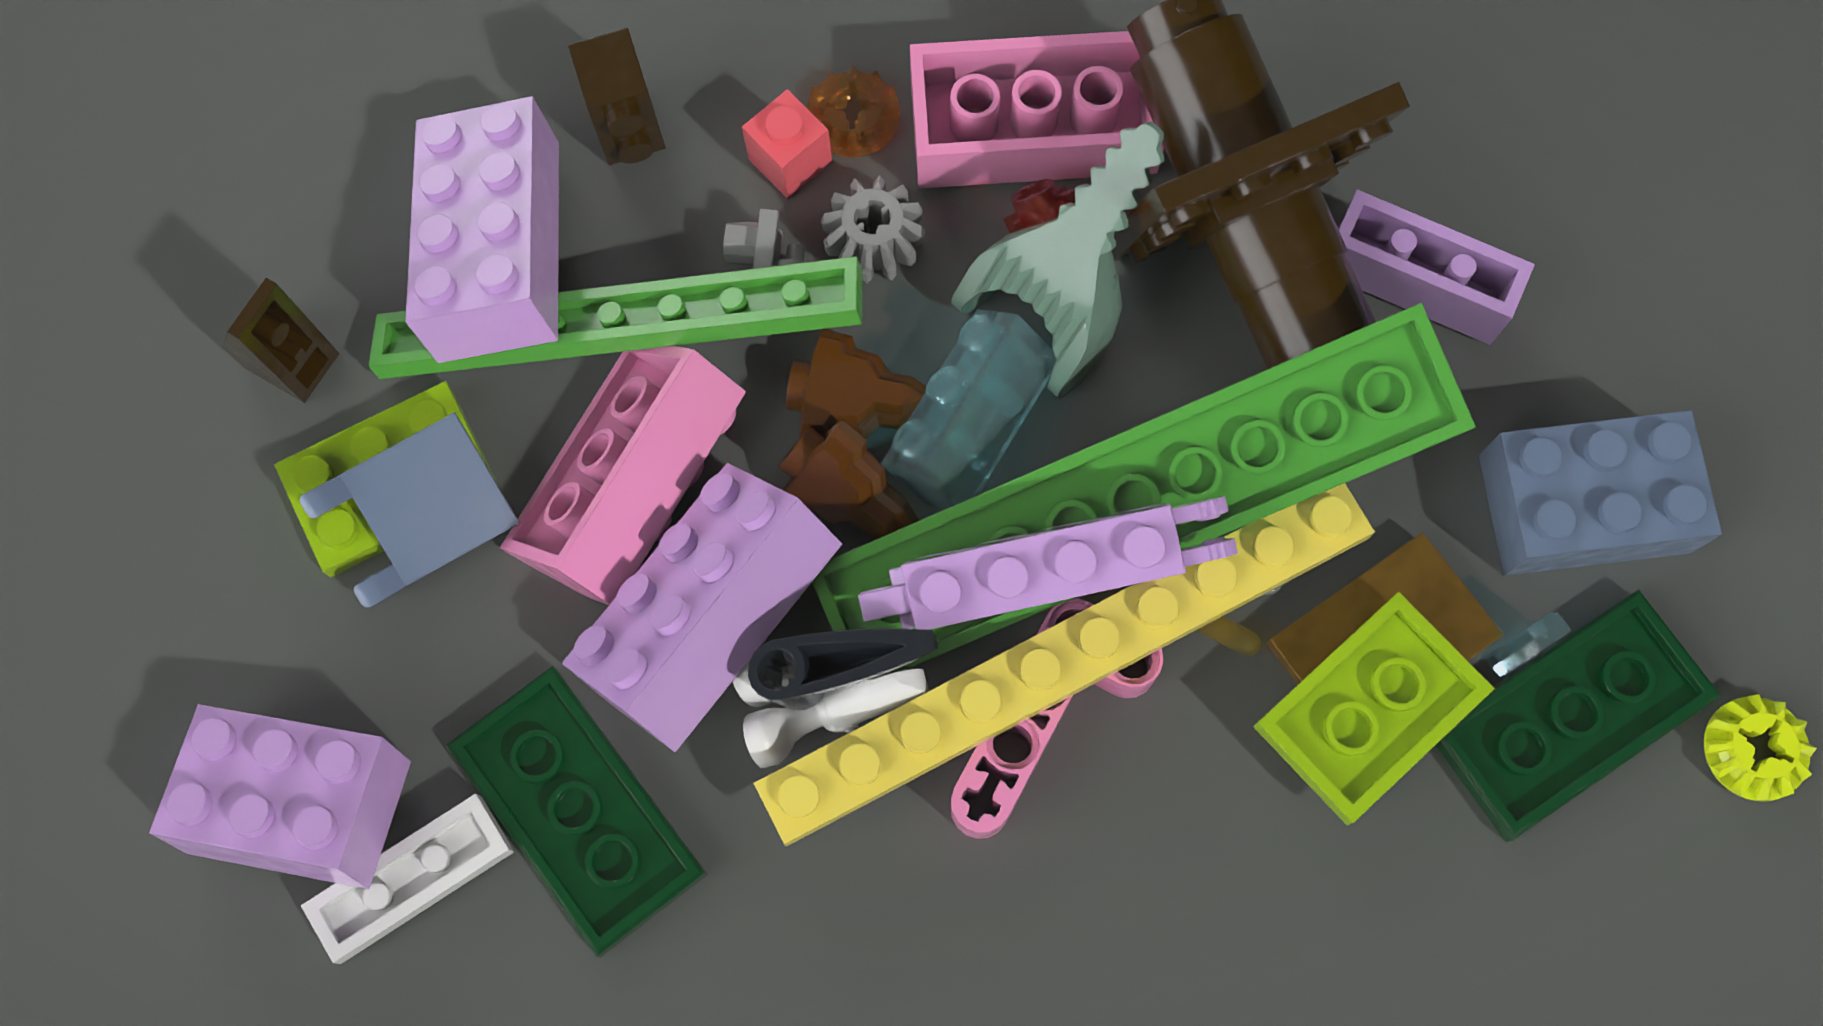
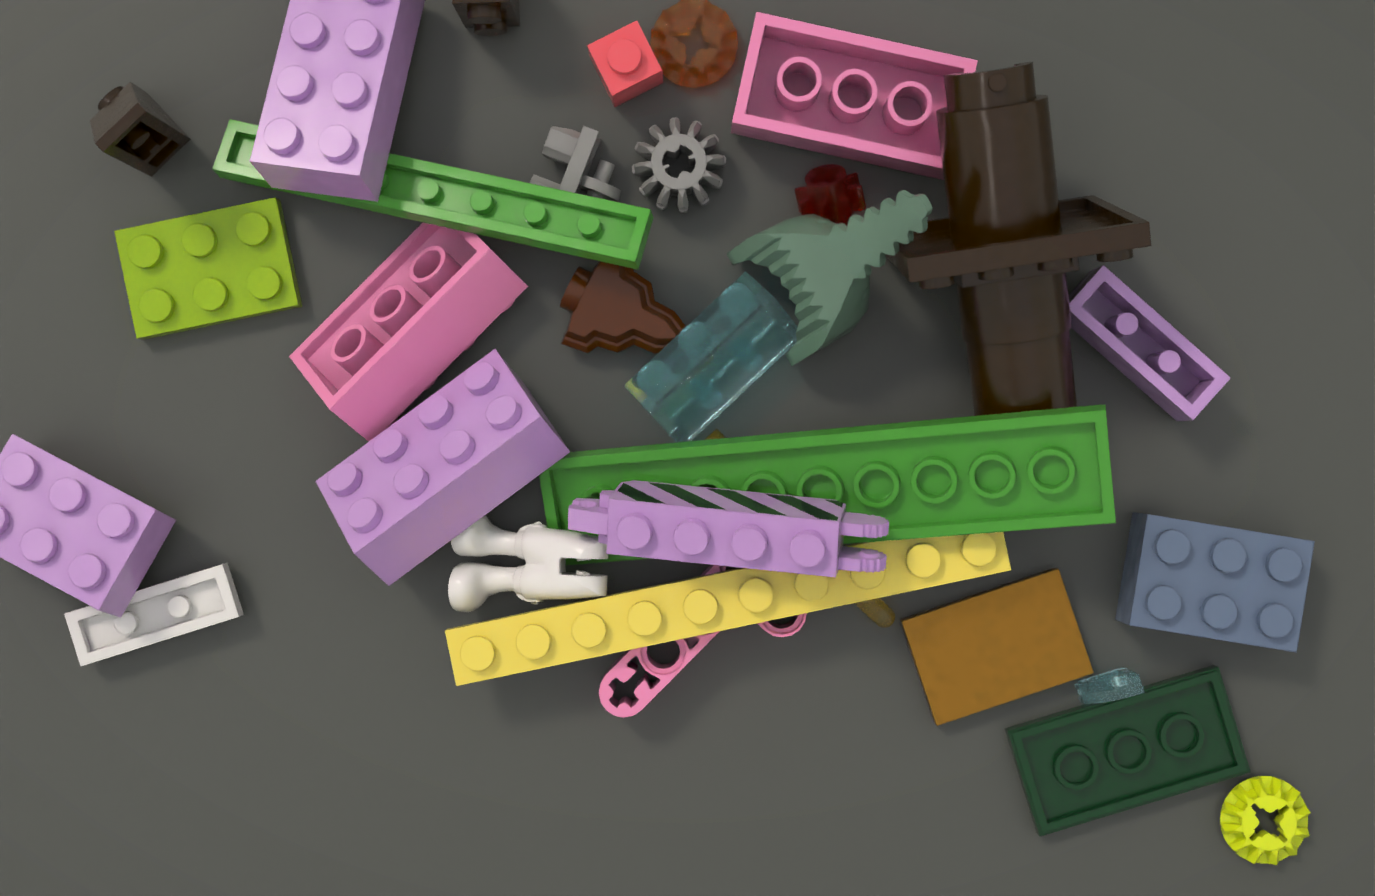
camera: 10 degrees right, 15 degrees up
(423, 502) = (233, 305): sand blue flag -> none
(576, 811) = (301, 595): dark green tile -> none
(832, 661) = (532, 560): black piece -> none
(844, 481) = (589, 392): reddish brown rock -> none
(1373, 708) = (963, 706): lime plate -> none

